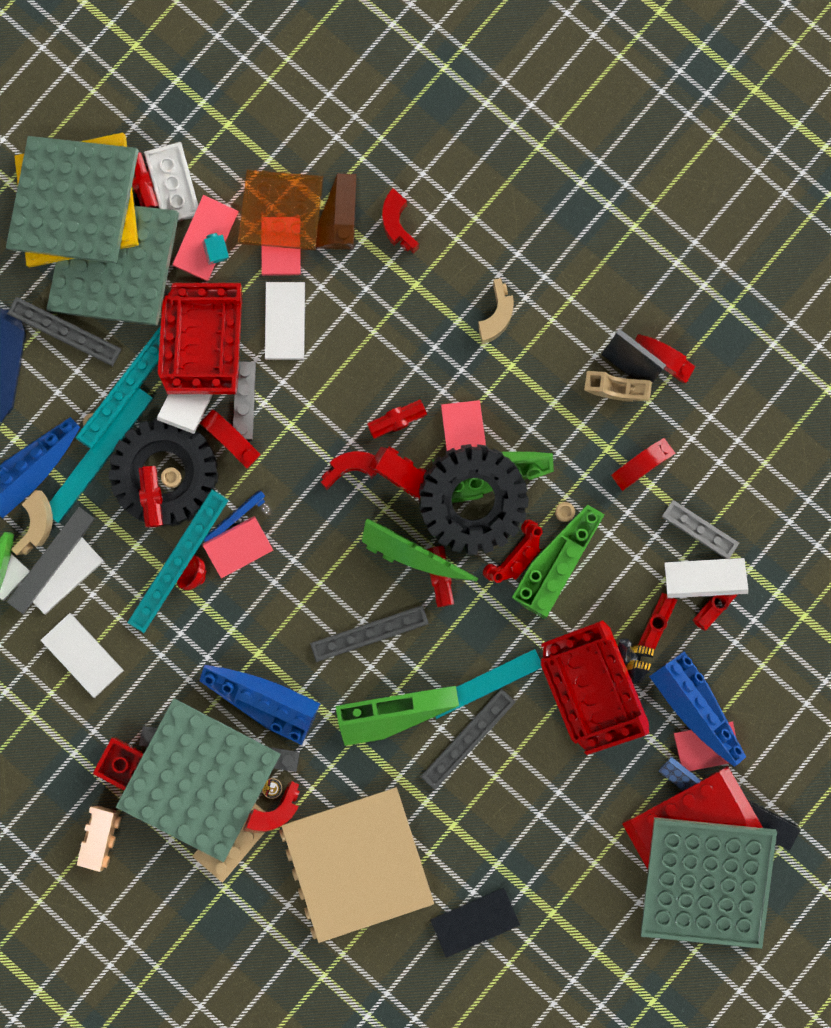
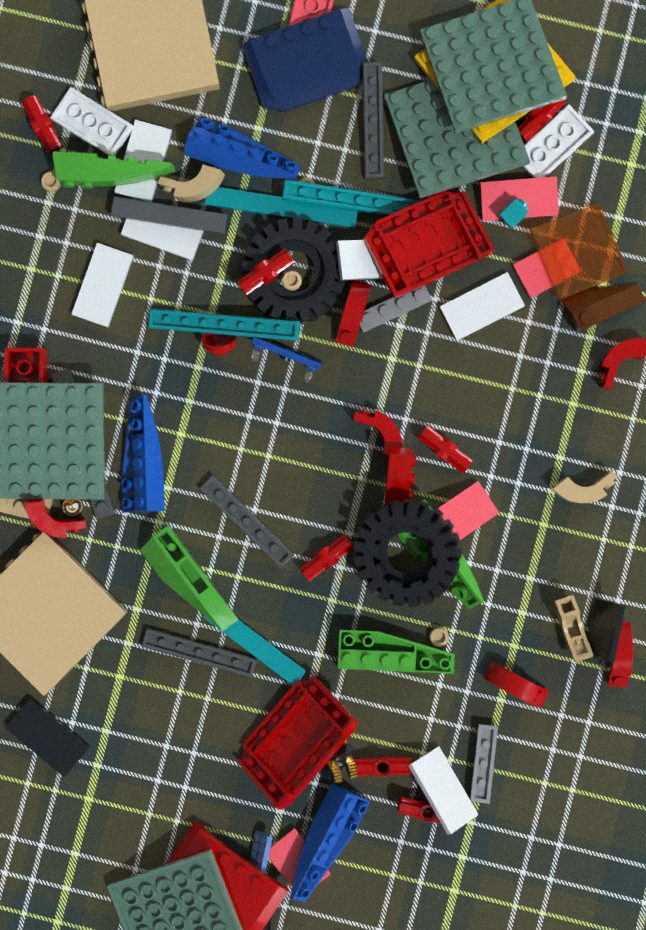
camera: 60 degrees right, 5 degrees up
(237, 547) = (262, 369): coral tile -> none
(409, 553) = (332, 521): bright green wedge -> none
(520, 557) = (379, 618): red plate -> none

